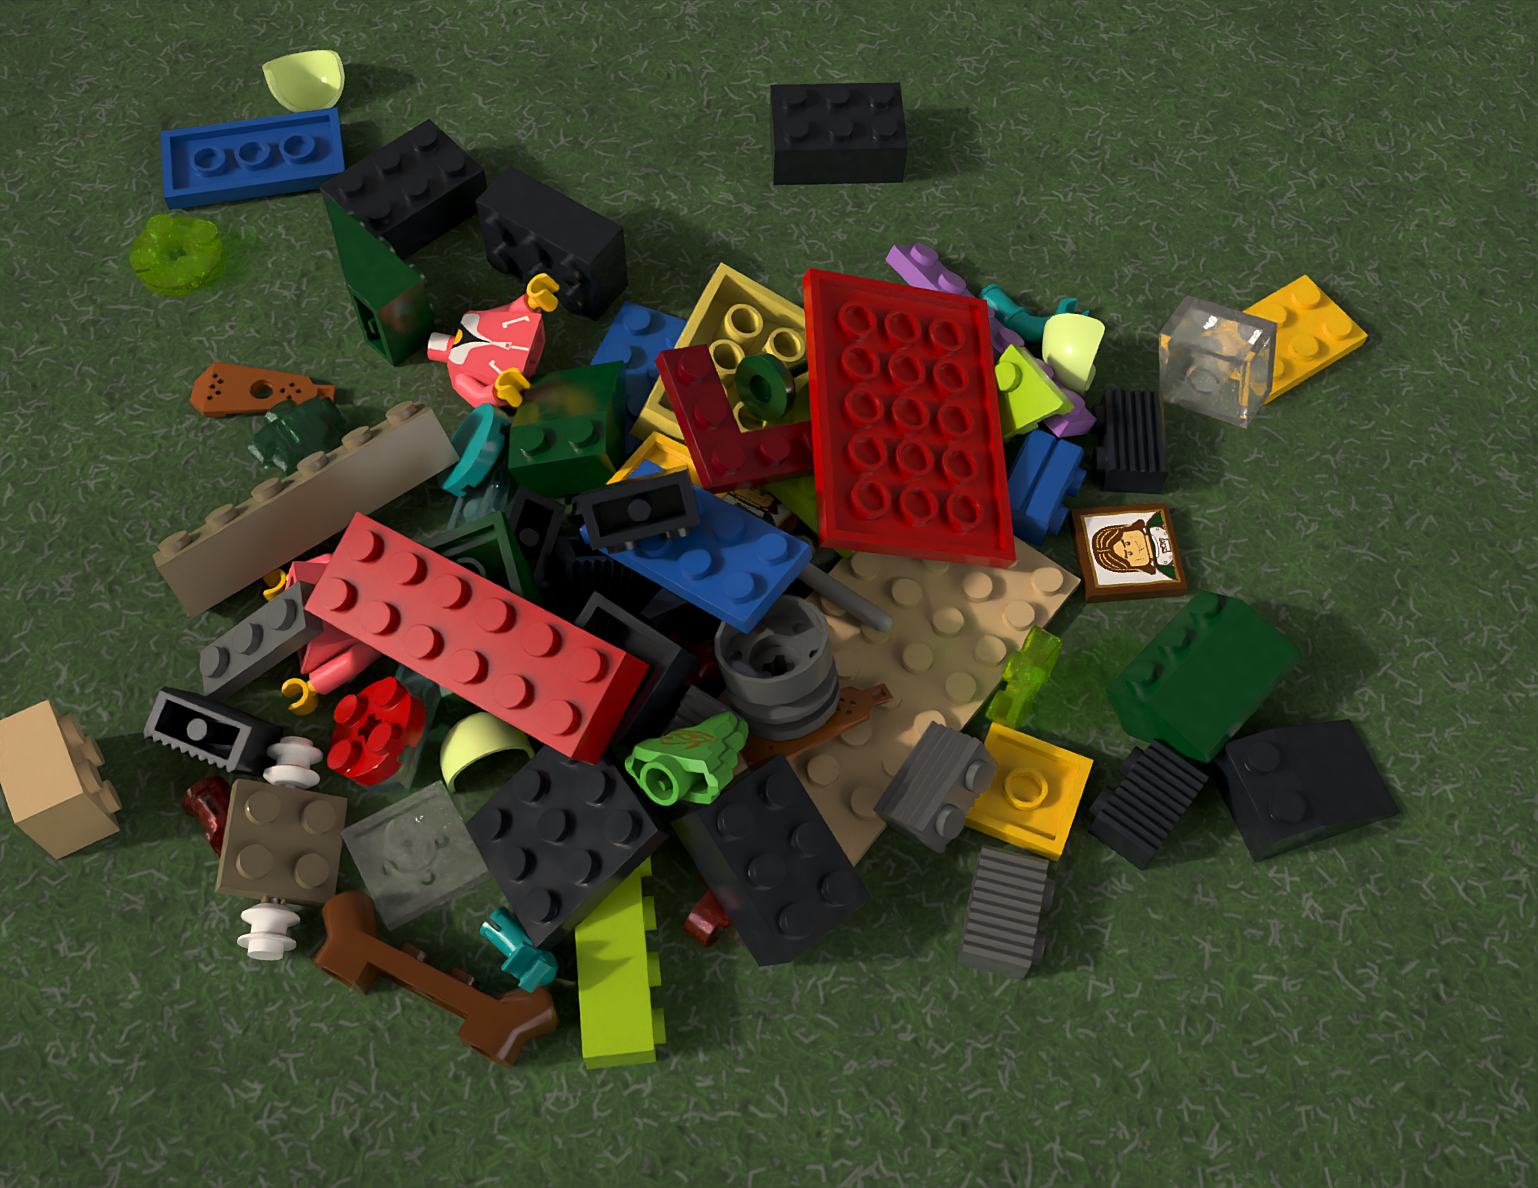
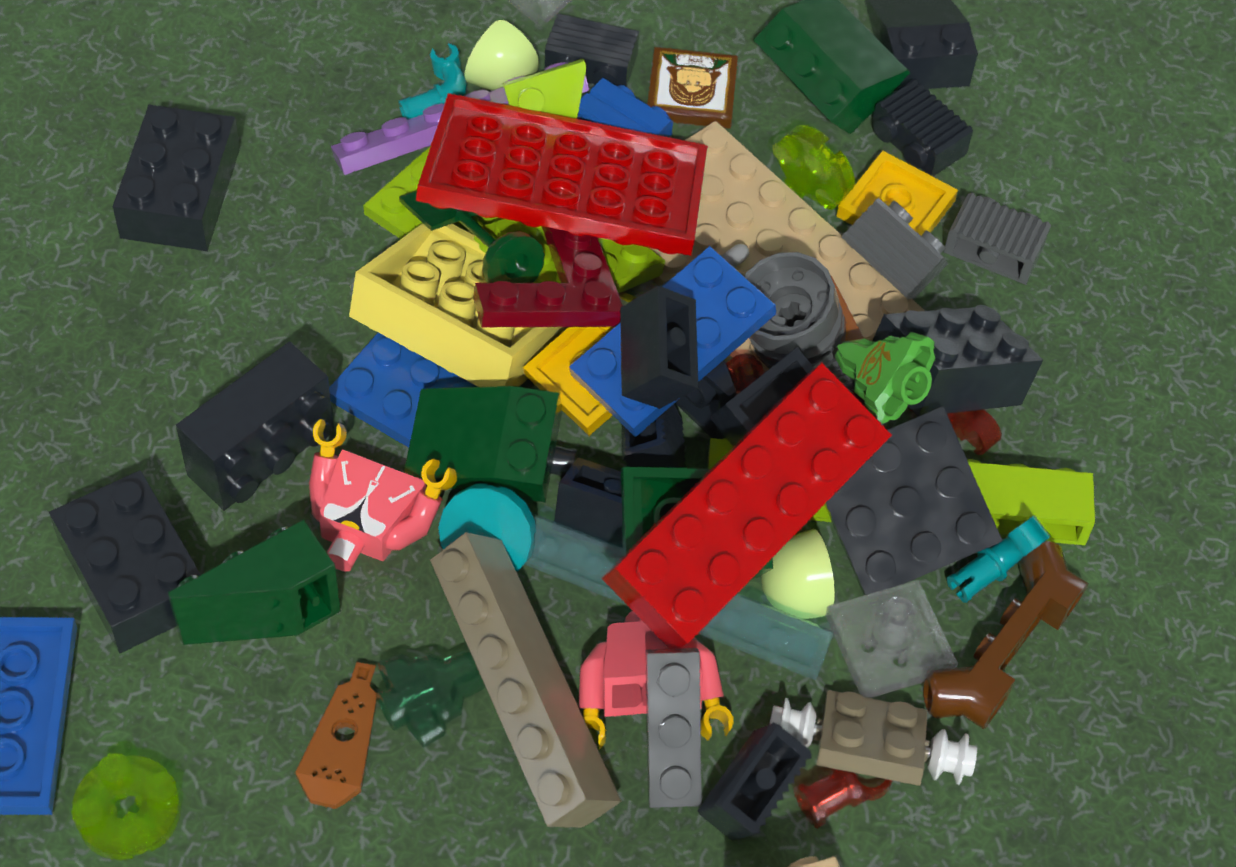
camera: 80 degrees left, 5 degrees down
(375, 731) = (752, 666): red plate -> none

